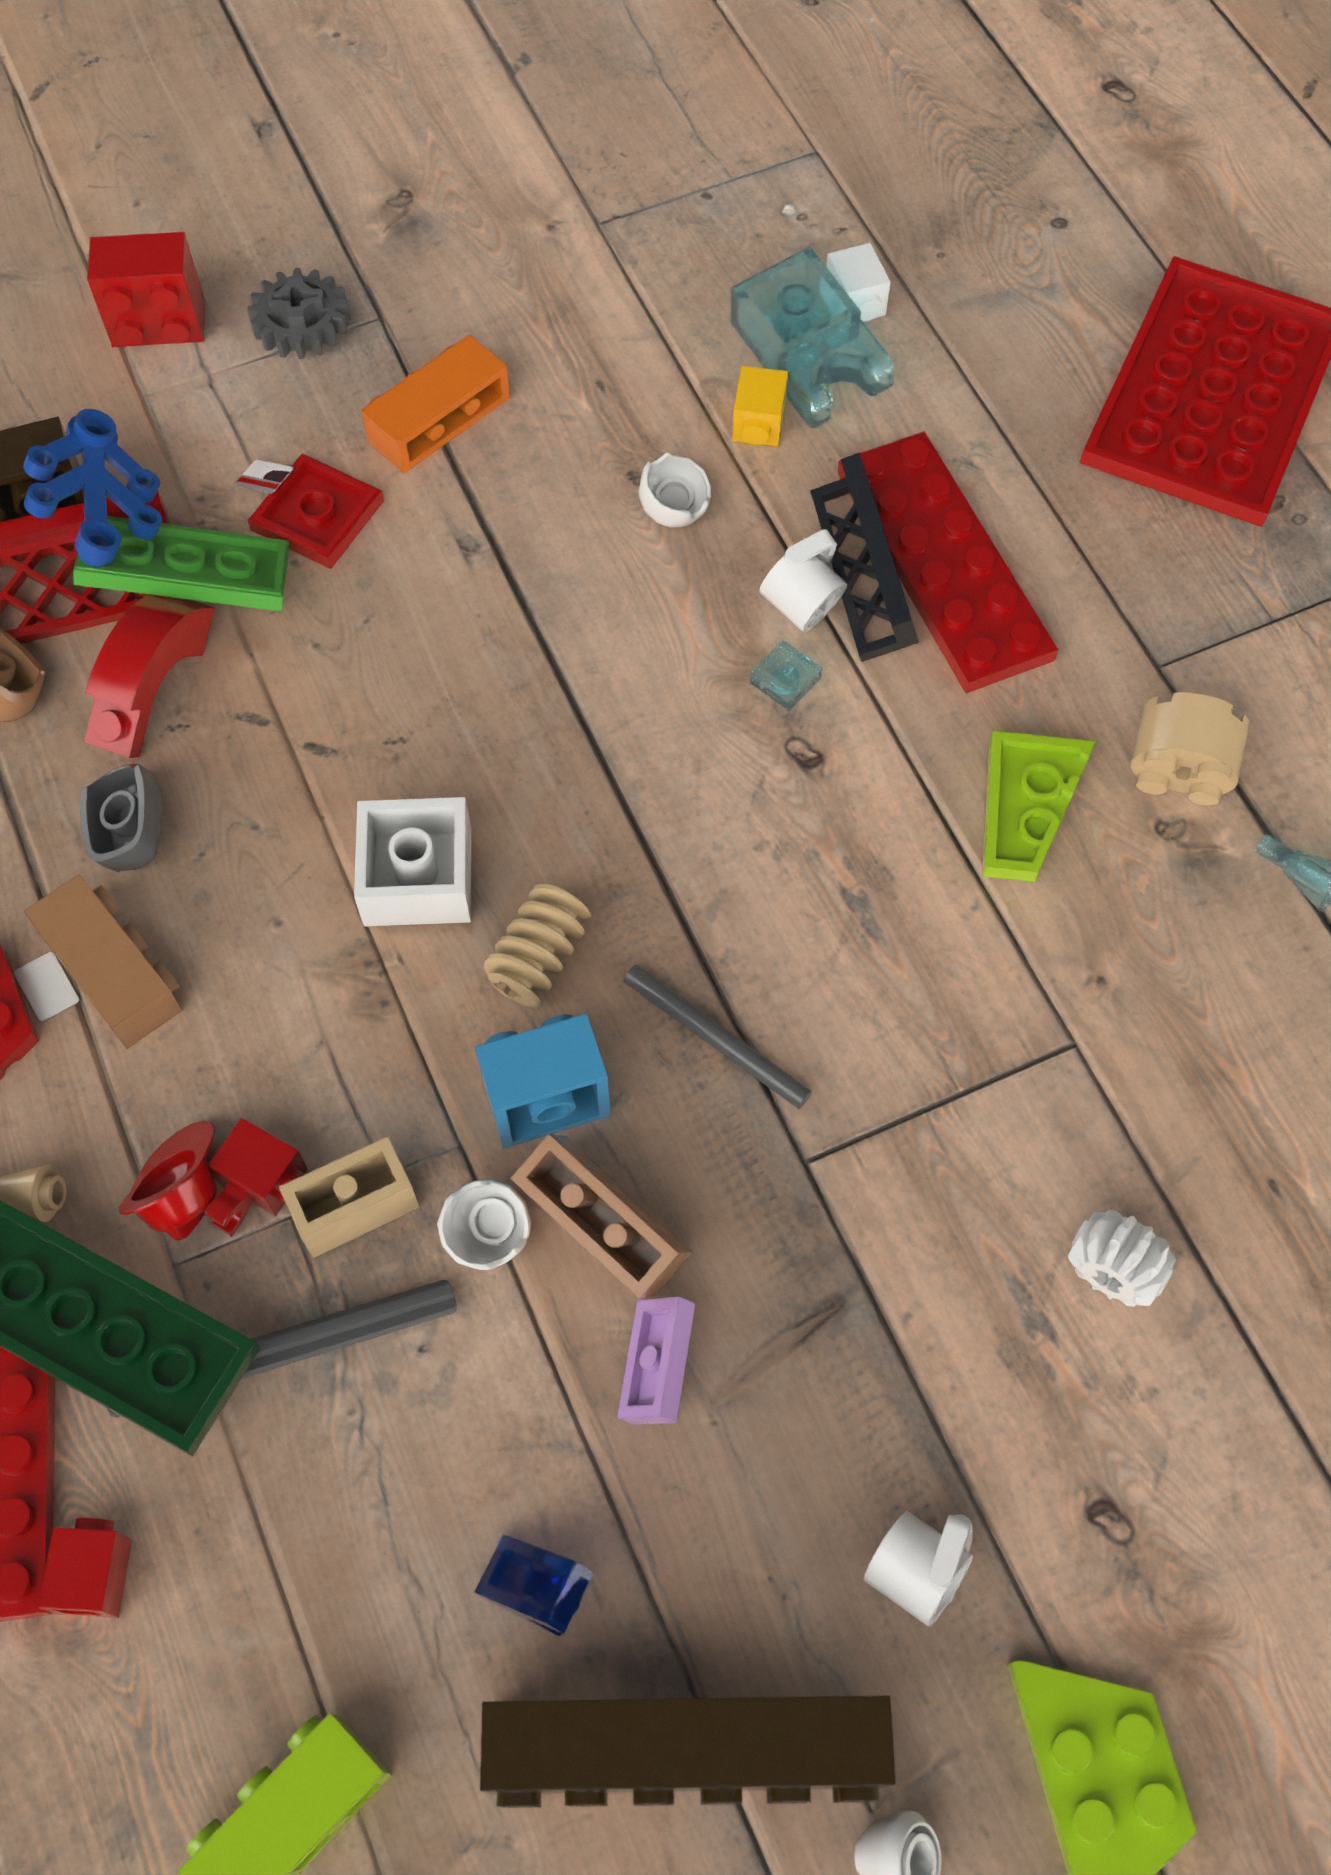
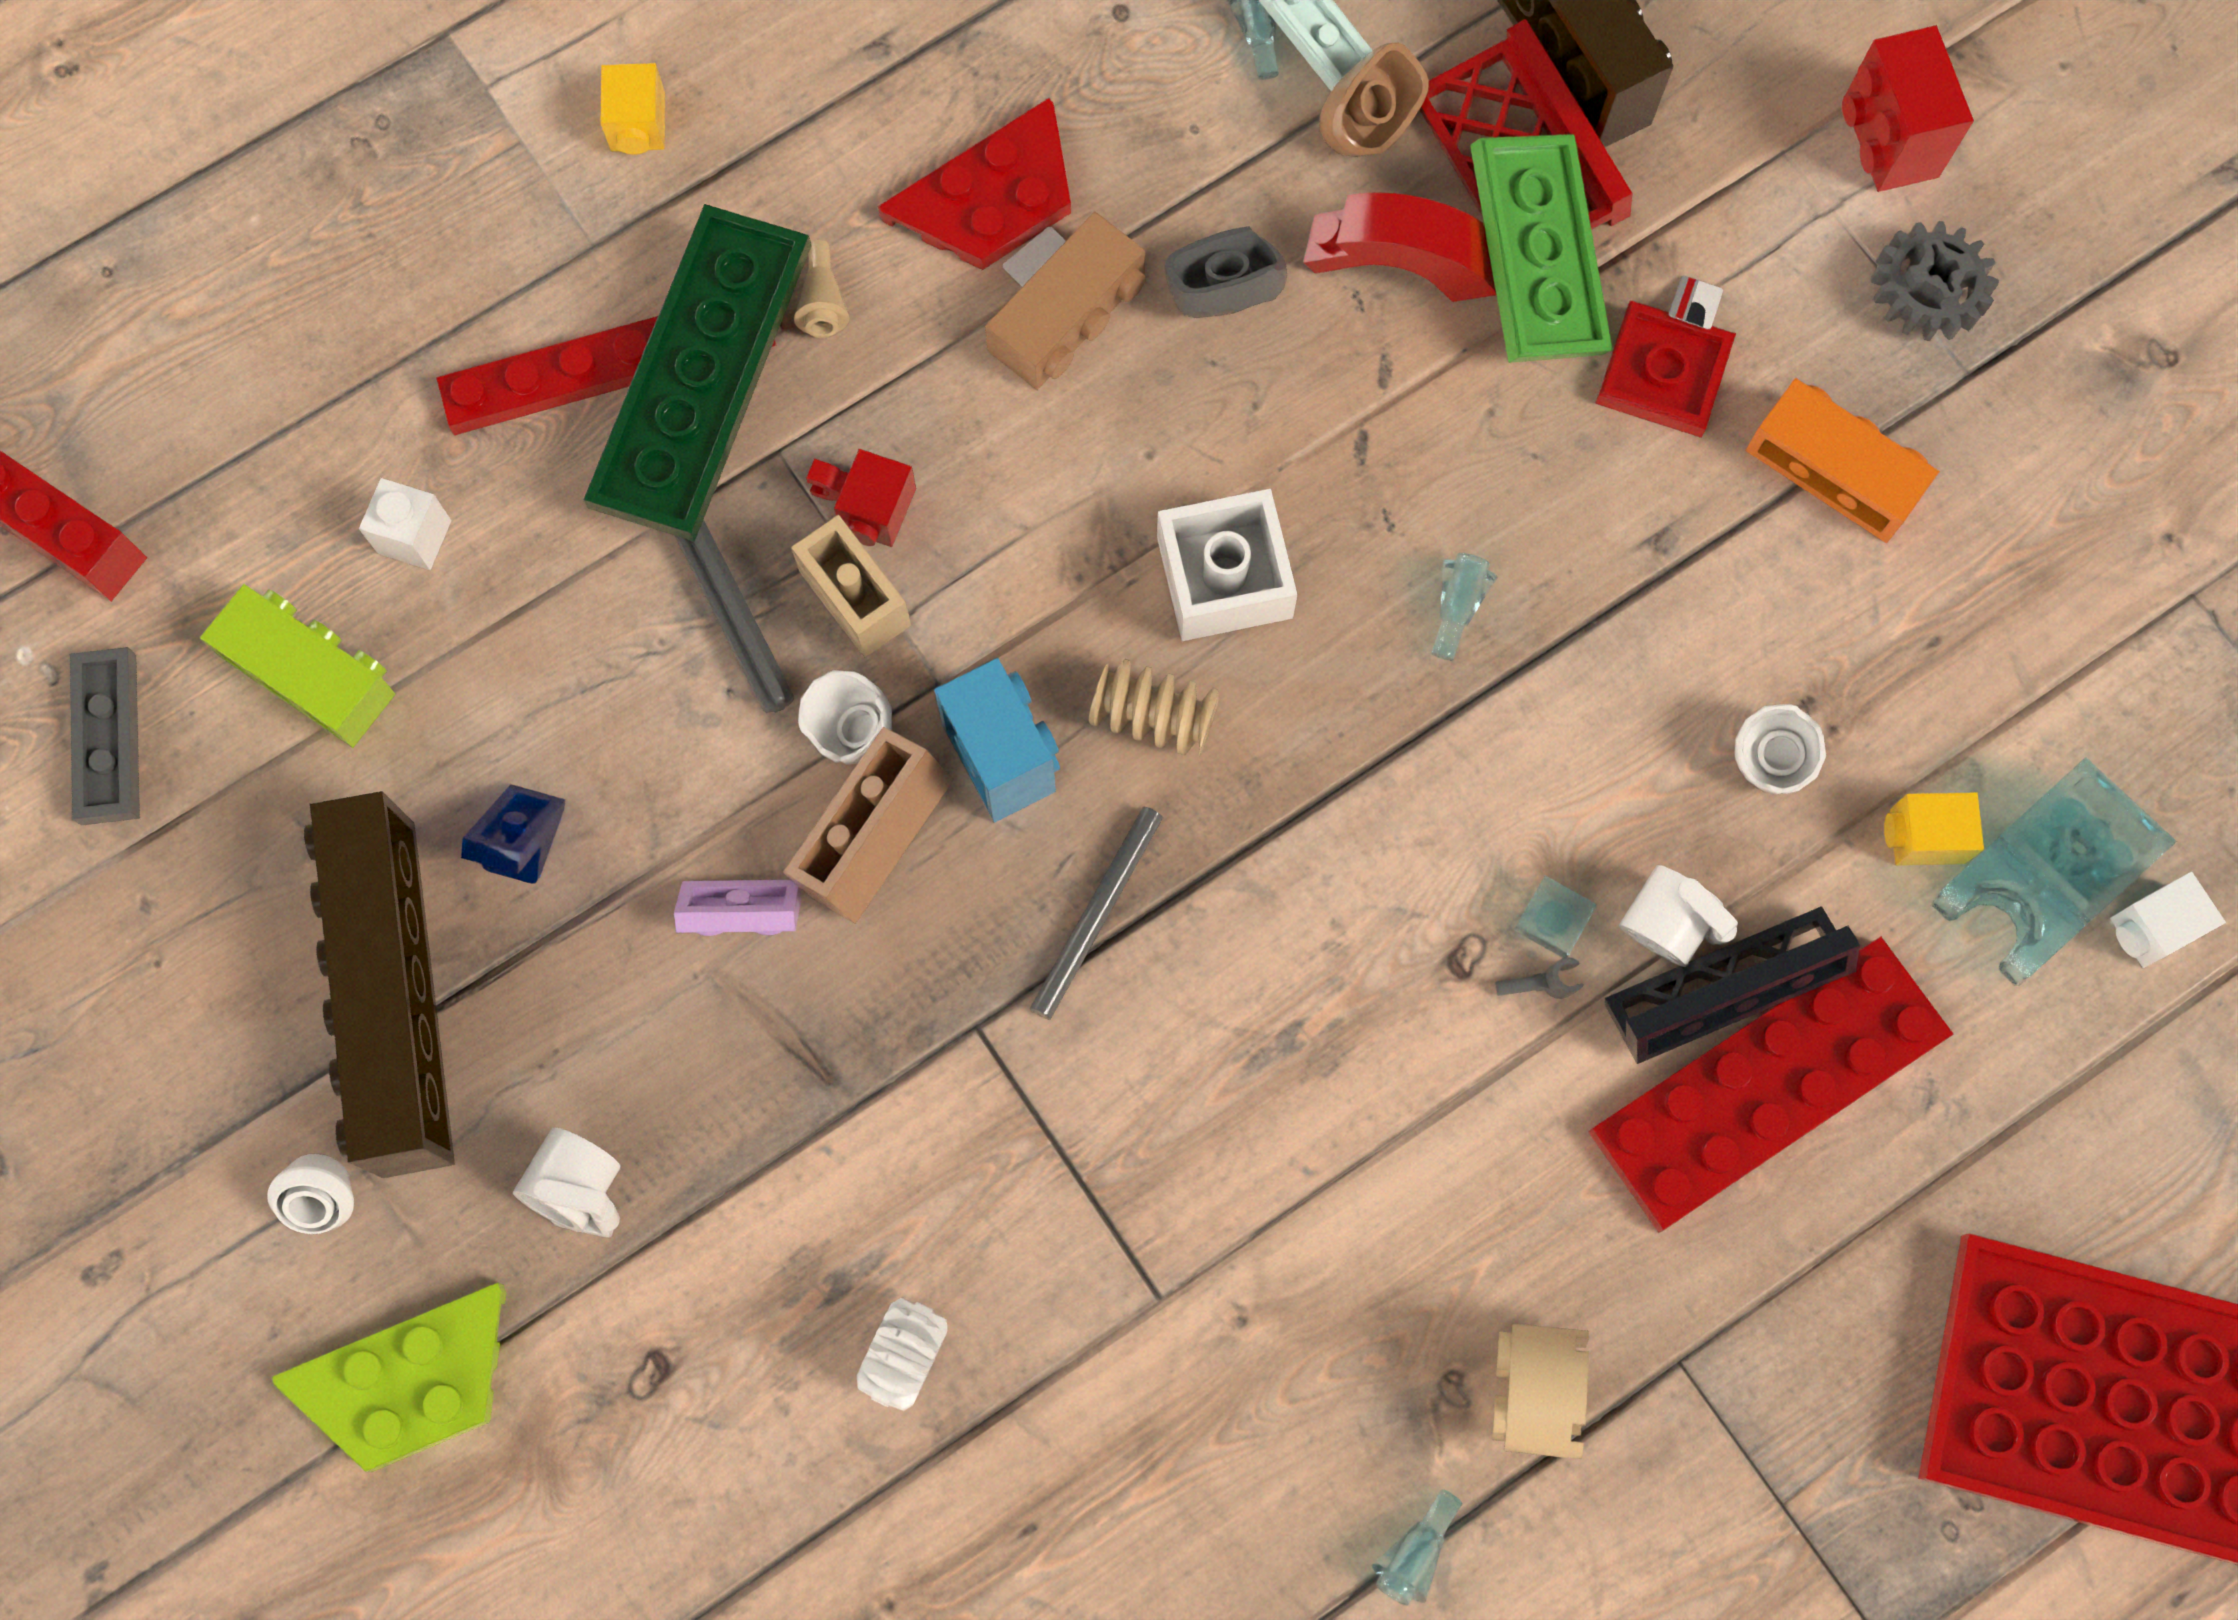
camera: 80 degrees right, 10 degrees up
(85, 1569) = (484, 449): red brick -> none
(96, 438) = (1598, 126): blue plant -> none
(150, 1671) = (405, 524): none -> white brick
(175, 1183) = (837, 424): red piece -> none
(479, 688) = (1463, 589): none -> clear light blue cone
(837, 692) = (1546, 981): none -> dark grey hand
(1027, 798) = (1449, 1212): lime wing -> none

